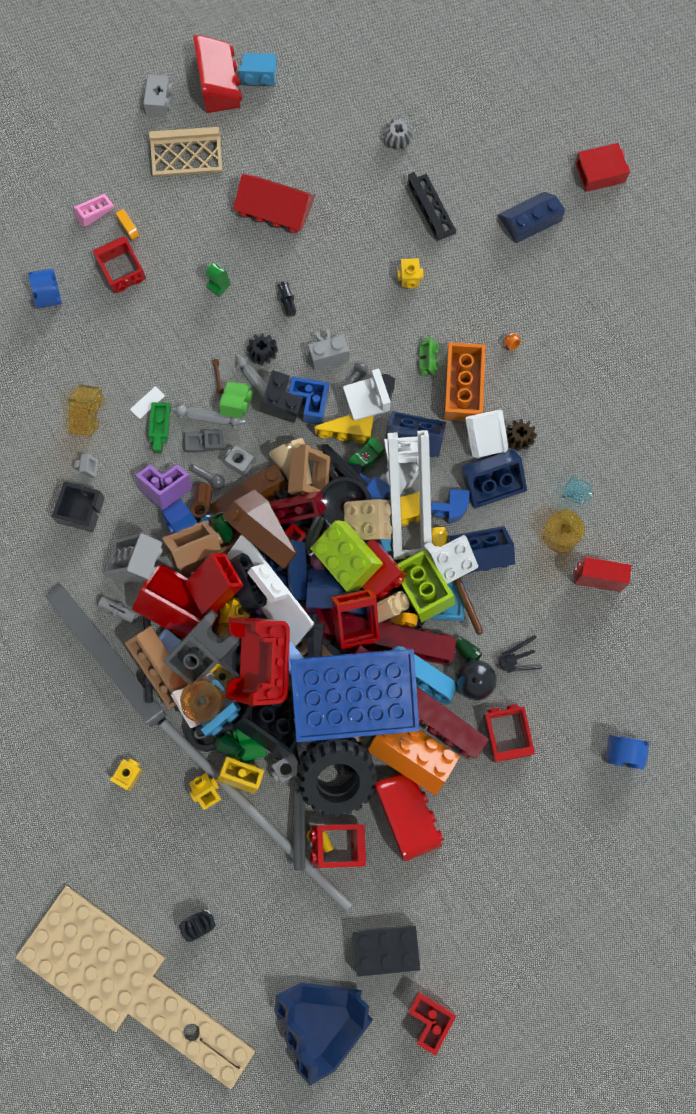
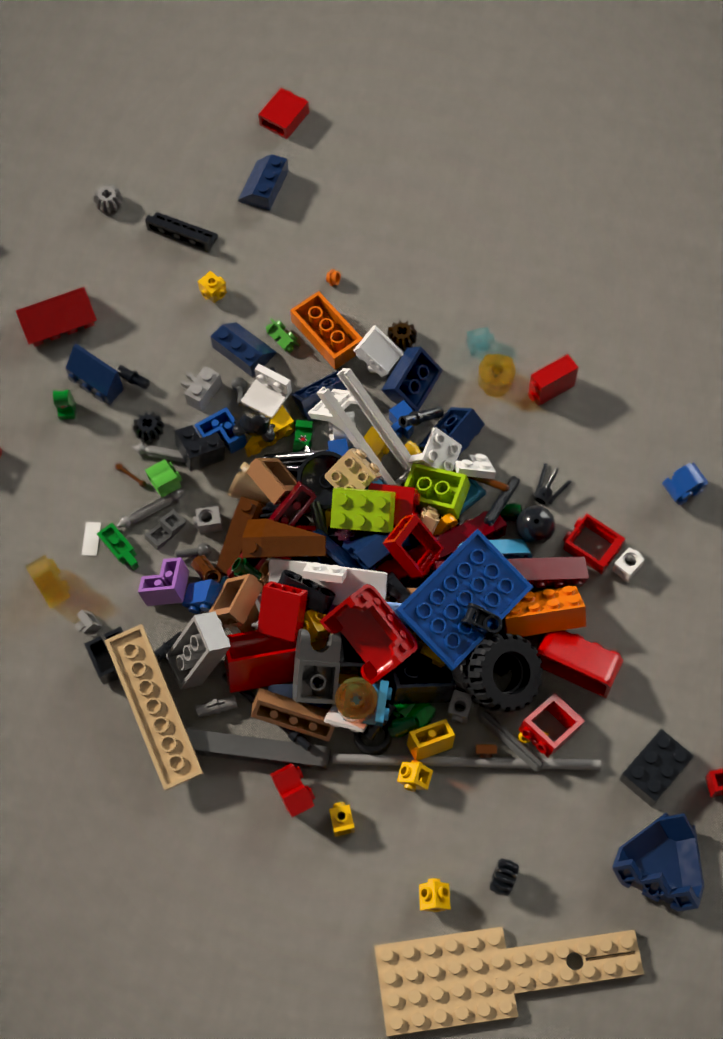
camera: 40 degrees left, 10 degrees down
(68, 573) = (154, 707): none -> tan plate
(109, 723) = (292, 791): none -> red brick
(114, 534) = (164, 649): none -> black axle
(137, 891) = (434, 896): none -> yellow brick
(257, 274) = (93, 375): none -> dark blue slope
(275, 818) = (486, 750): none -> reddish brown plate
(333, 416) = (255, 426): none -> black hair
(347, 721) = (477, 618): none -> black piece
(390, 341) = (241, 347): none -> dark blue slope
(463, 514) = (408, 420): none -> black pin
(467, 638) = (501, 501): none -> black axle
(474, 596) = (476, 466): none -> white plate
(511, 776) = (625, 571): none -> white brick

